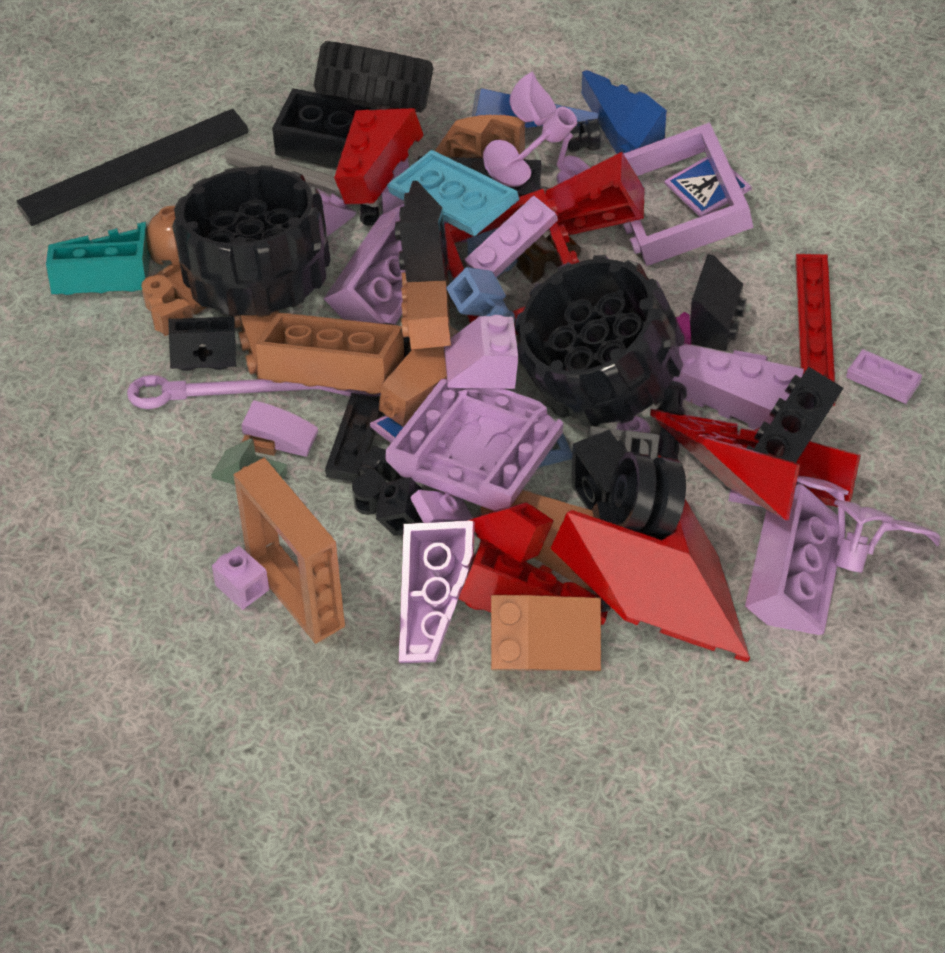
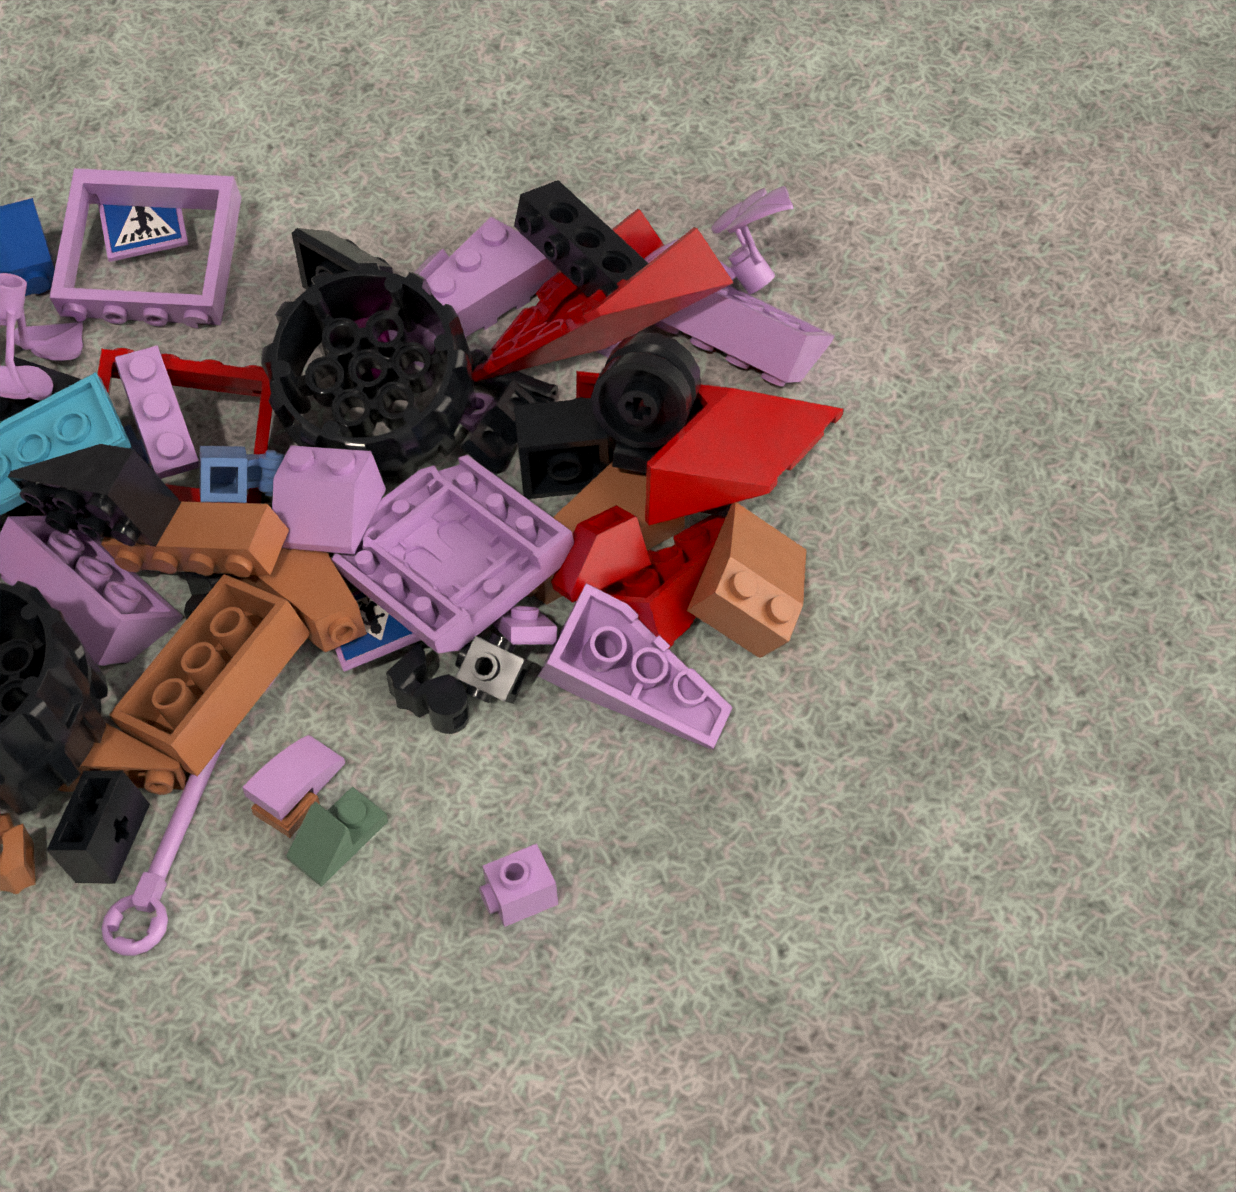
camera: 70 degrees left, 5 degrees up
(271, 509) = (545, 748): nougat window -> none
(353, 437) = (346, 697): black plate -> none
(599, 196) = (120, 311): red wedge -> none
(814, 314) = (395, 198): red tile -> none
(884, 376) = (514, 165): lavender plate -> none

